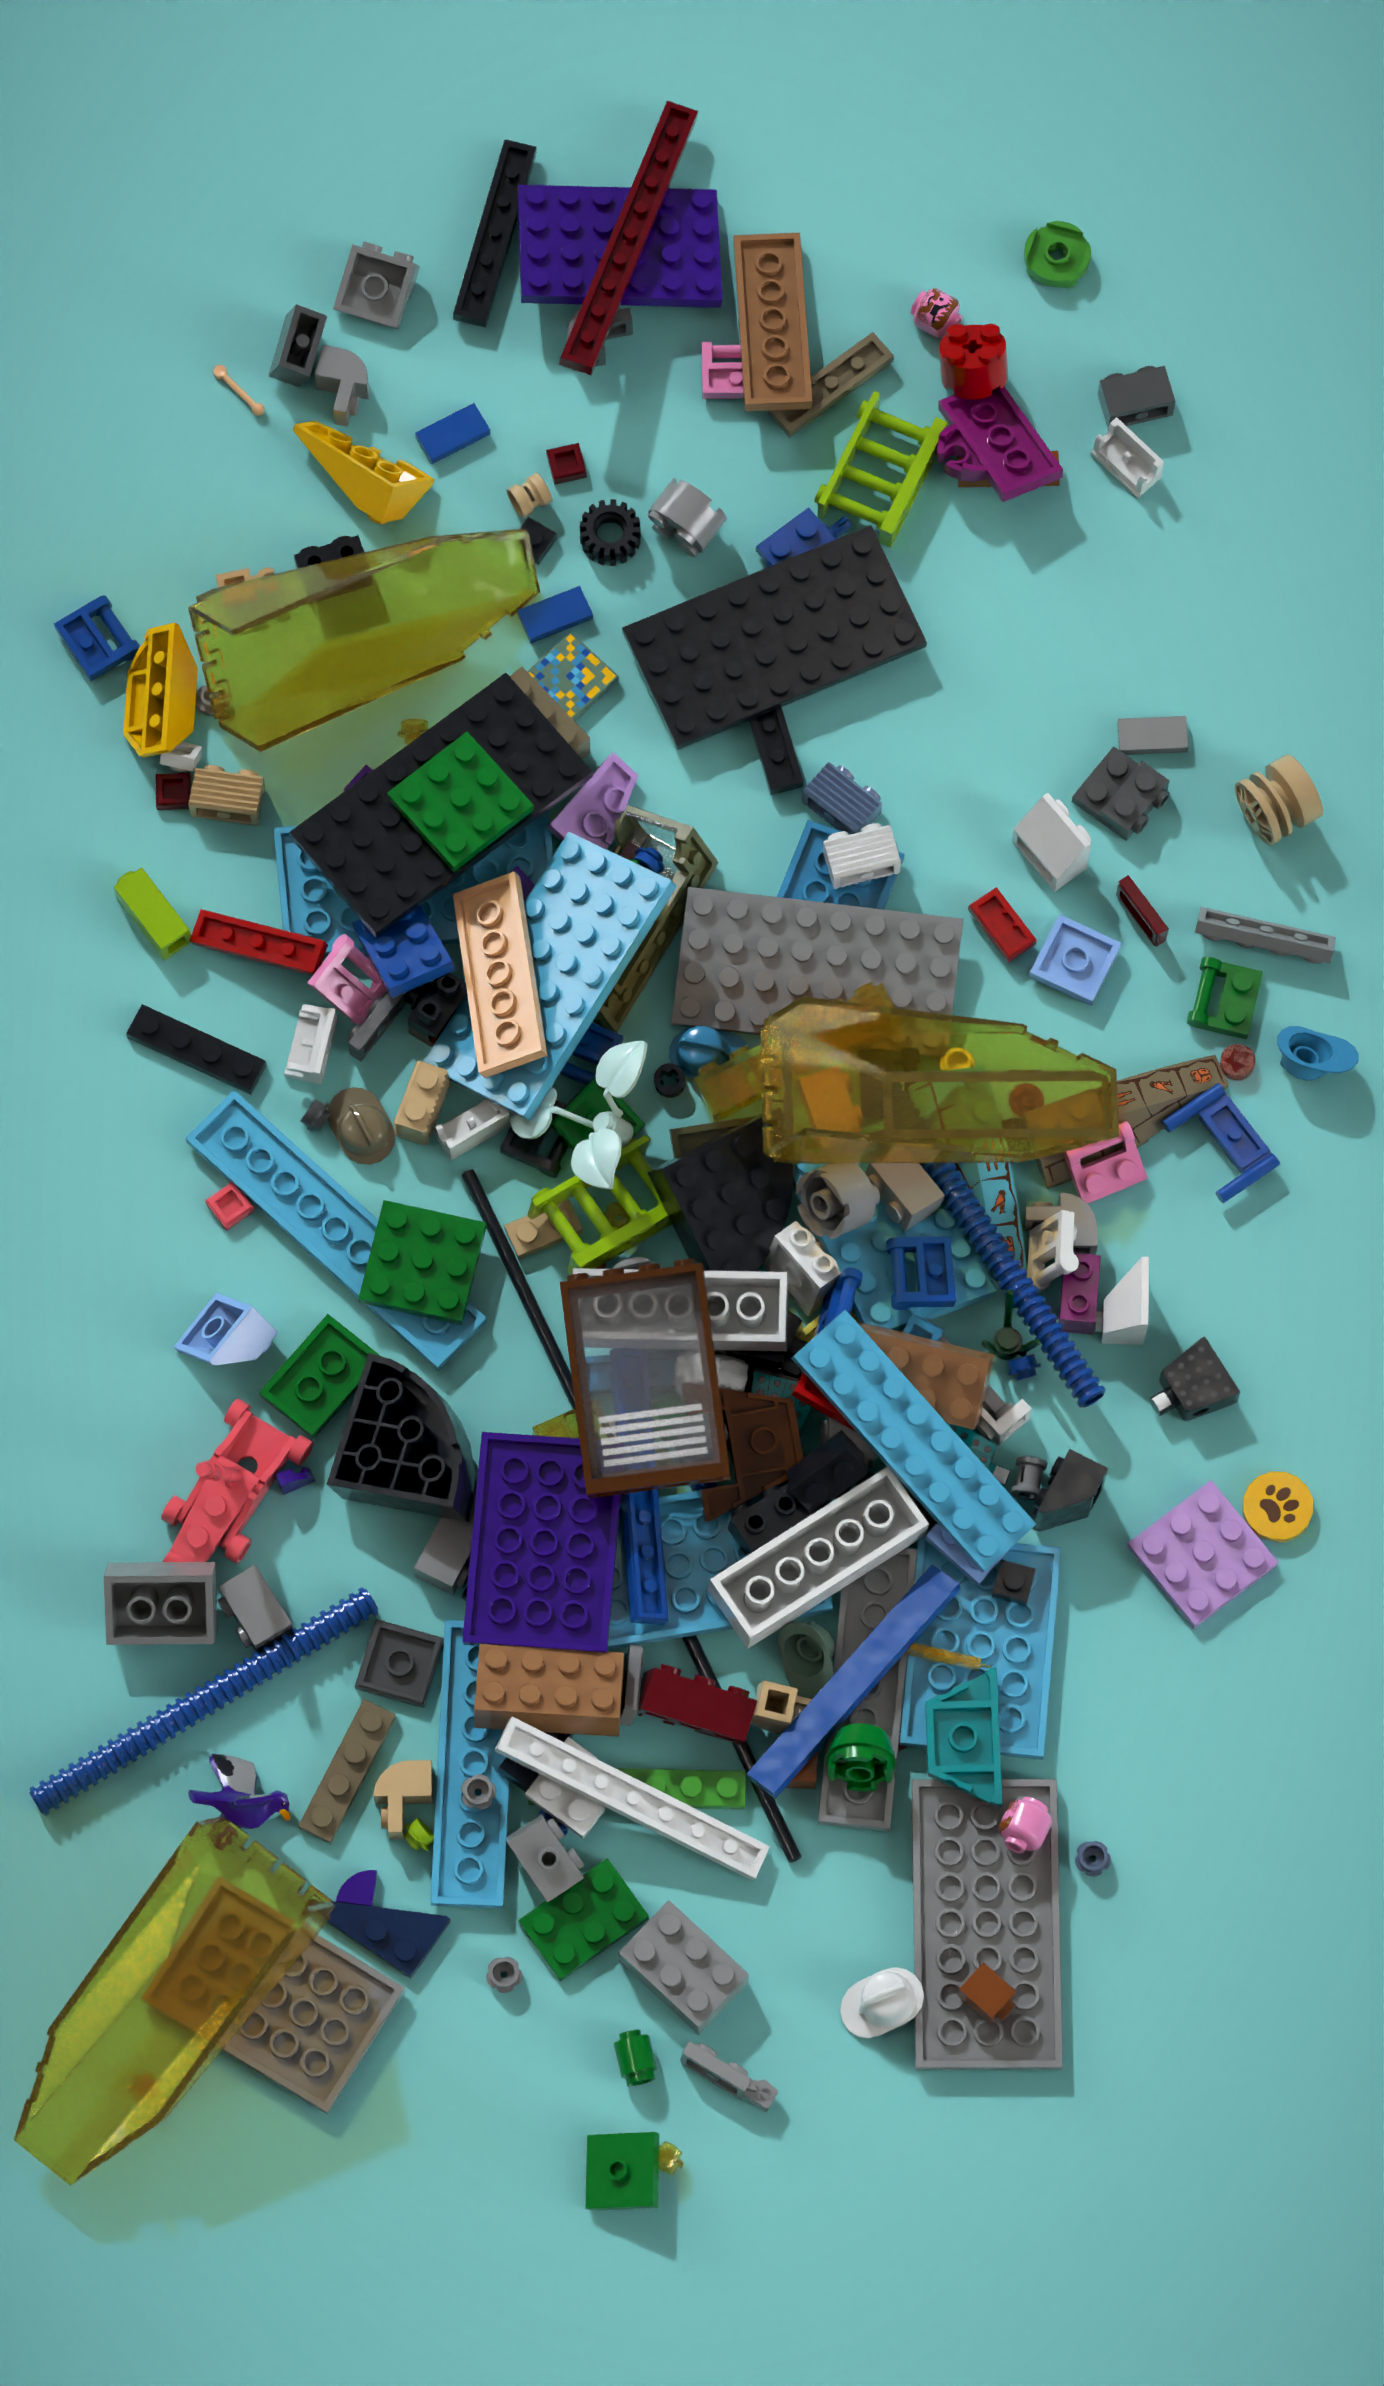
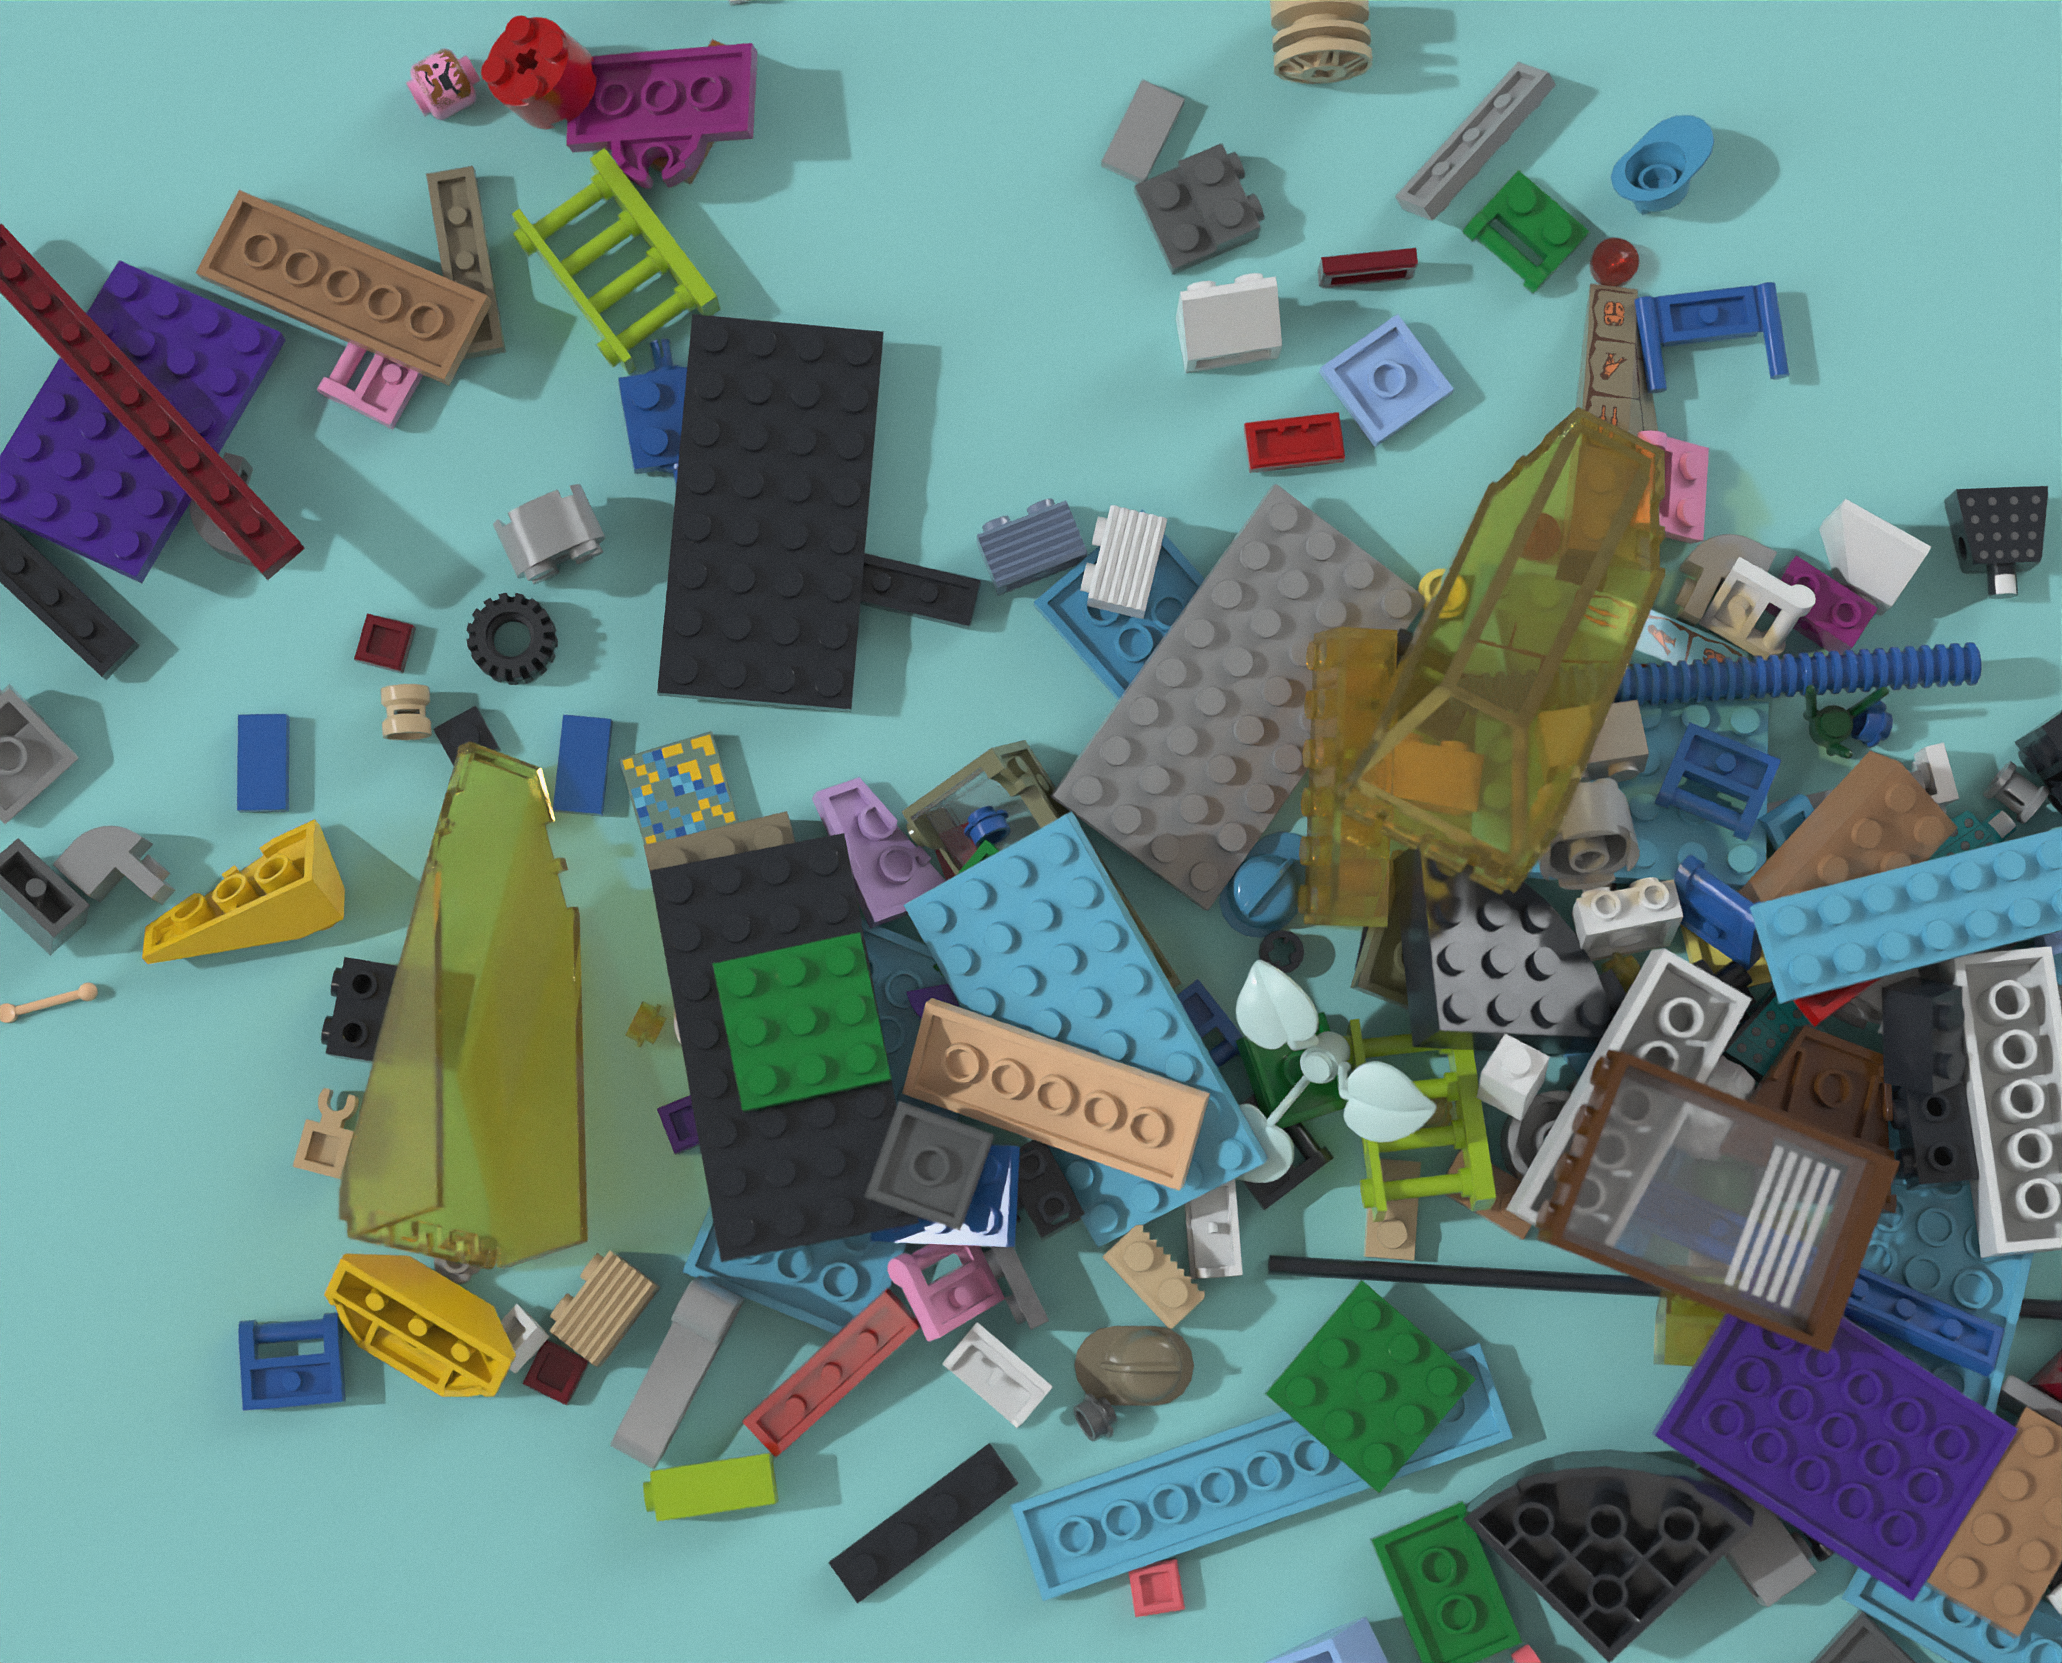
camera: 65 degrees left, 10 degrees up
(214, 855) = (677, 1370): none -> light grey beam
(412, 918) = (929, 1166): none -> dark grey tile
(660, 1237) = (1512, 1077): none -> white brick

